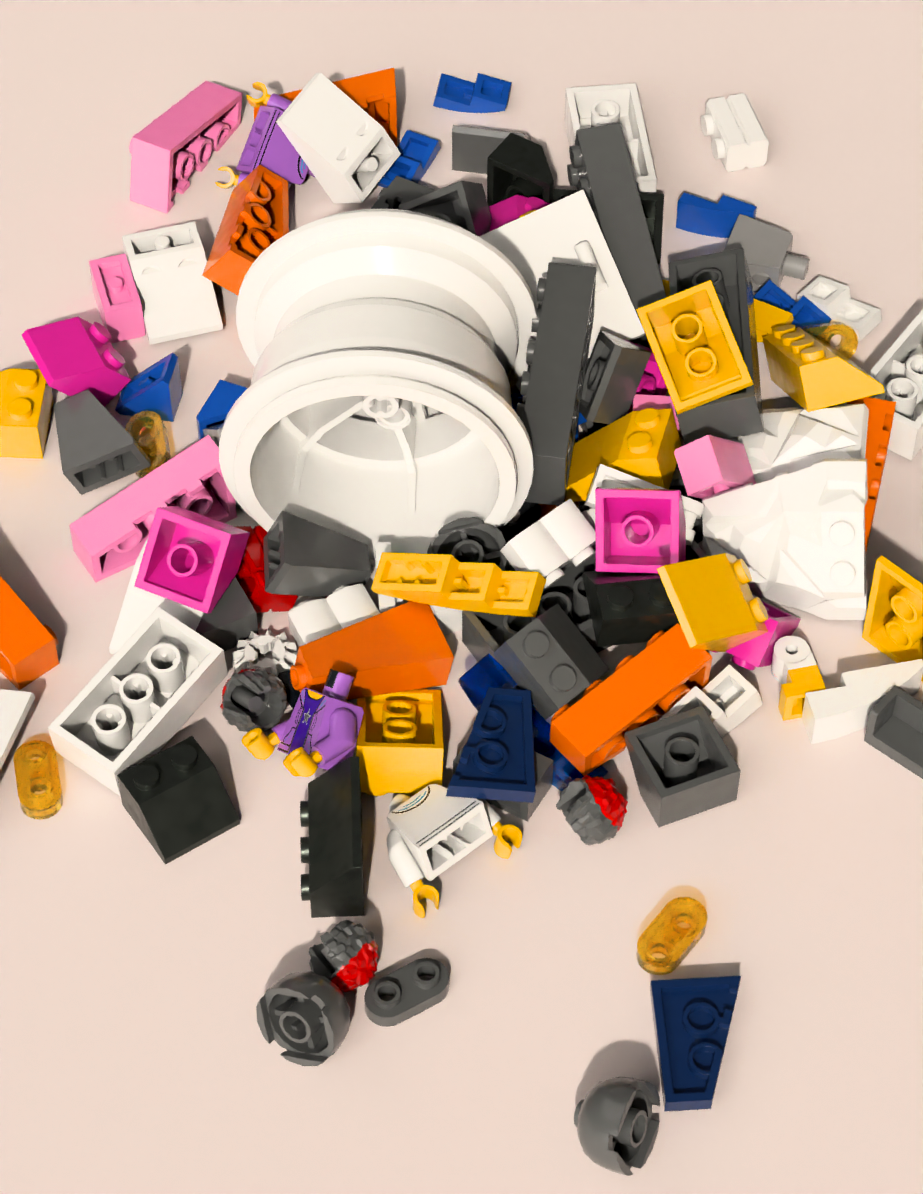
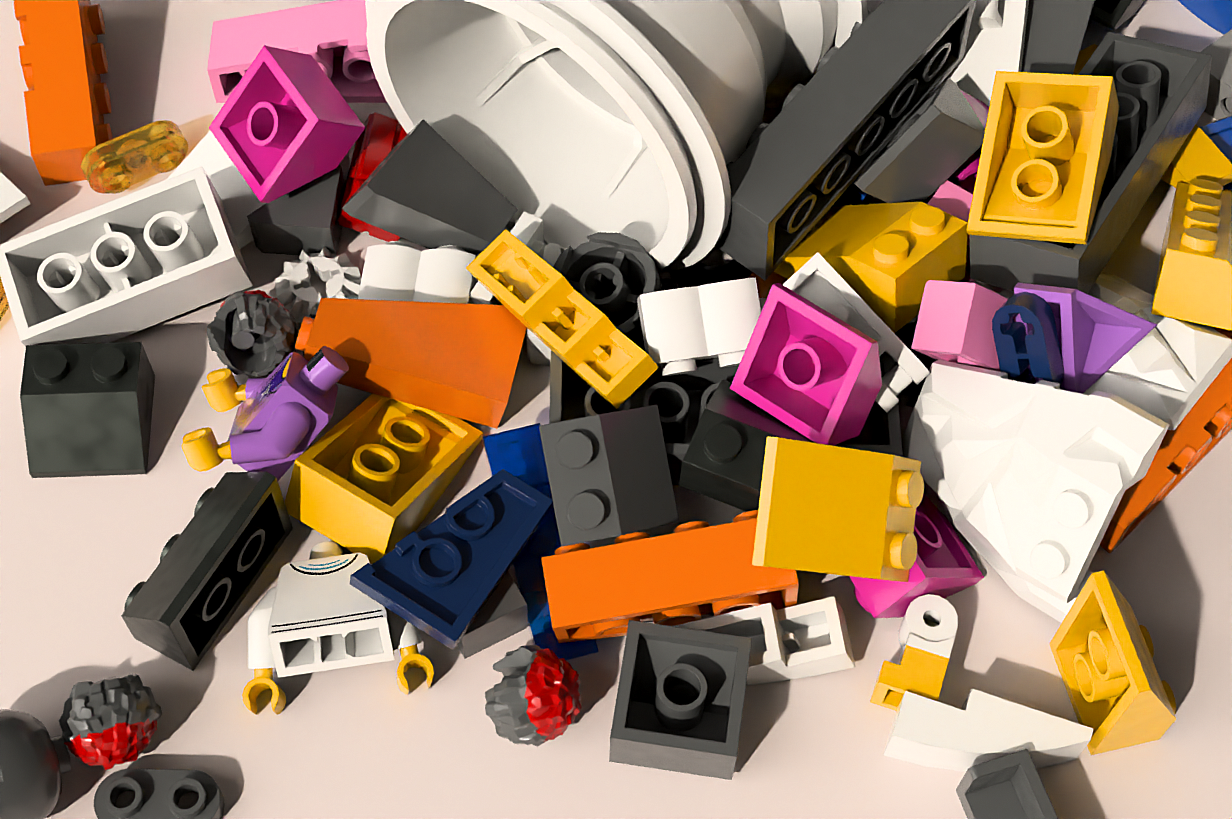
camera: 30 degrees right, 10 degrees up
(77, 638) = (134, 157): none -> clear yellow plate
(763, 455) = (1037, 348): none -> dark blue beam
(773, 442) = (1089, 333): none -> medium lavender slope

